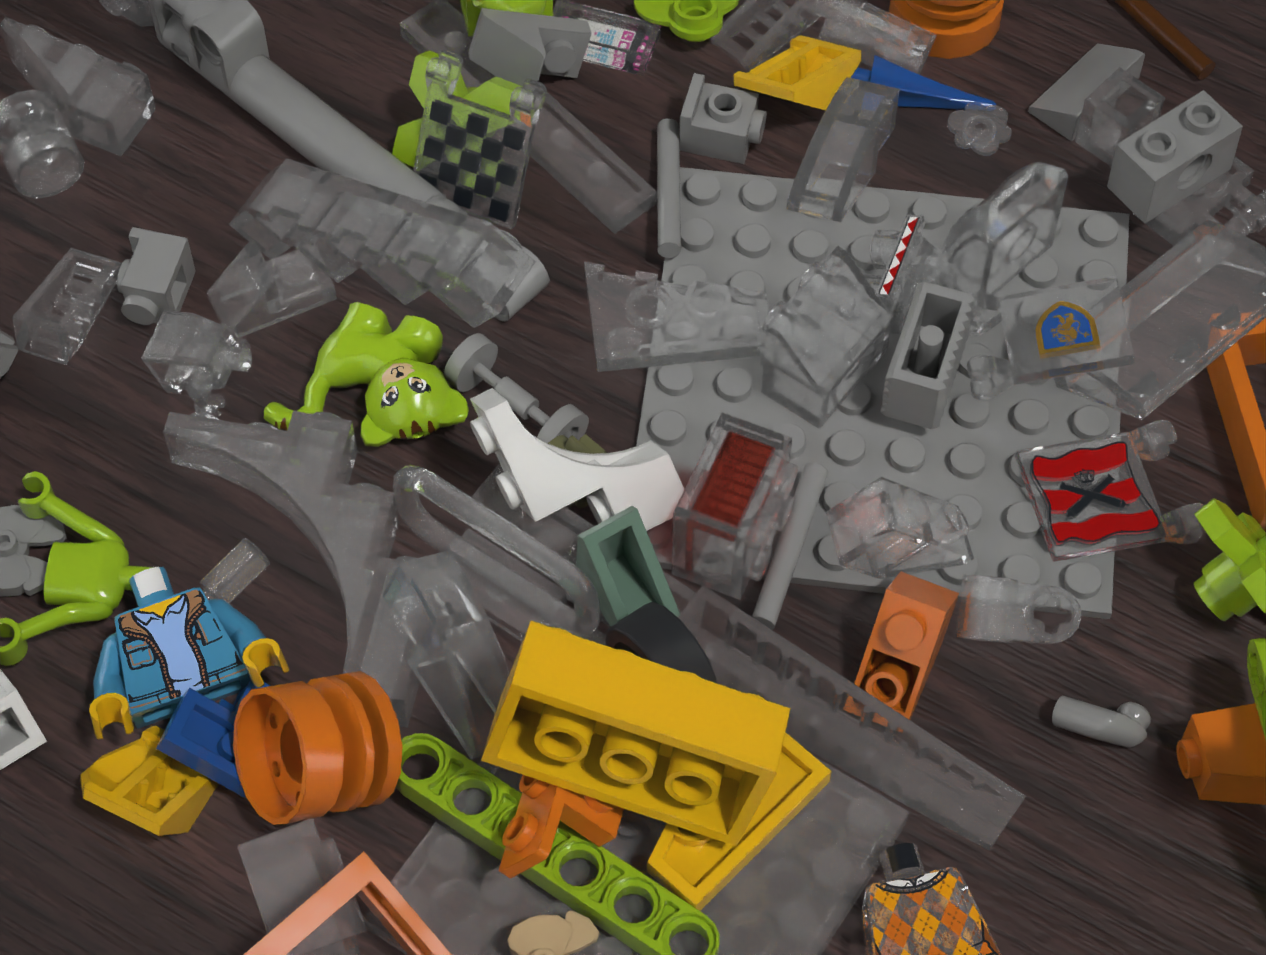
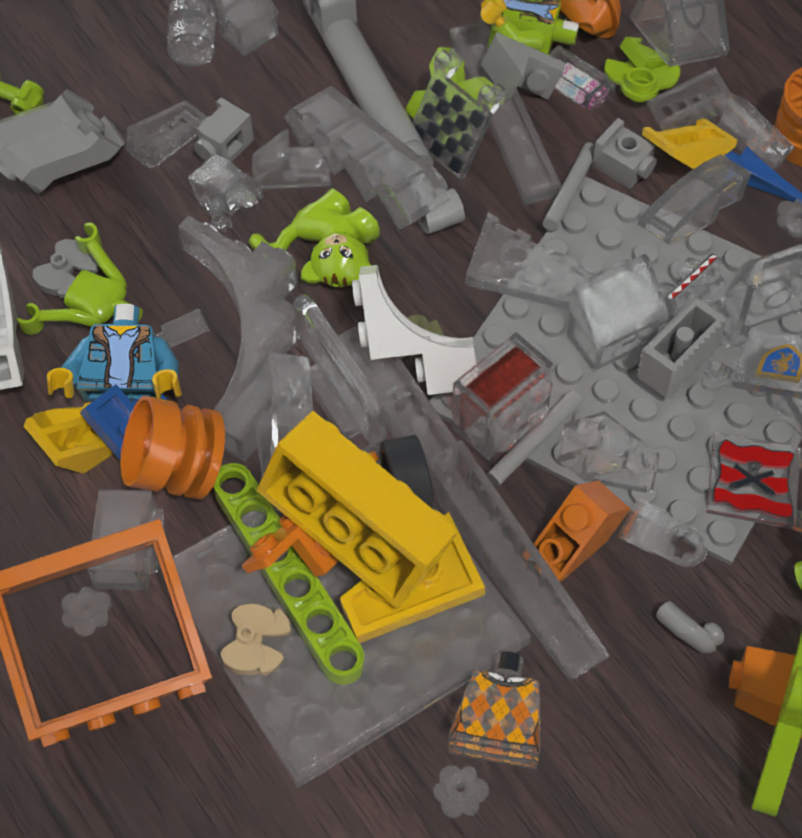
camera: 25 degrees right, 0 degrees up
(473, 363) = (390, 253): light grey wheel -> none
(623, 566) = (413, 408): sand green slope -> none

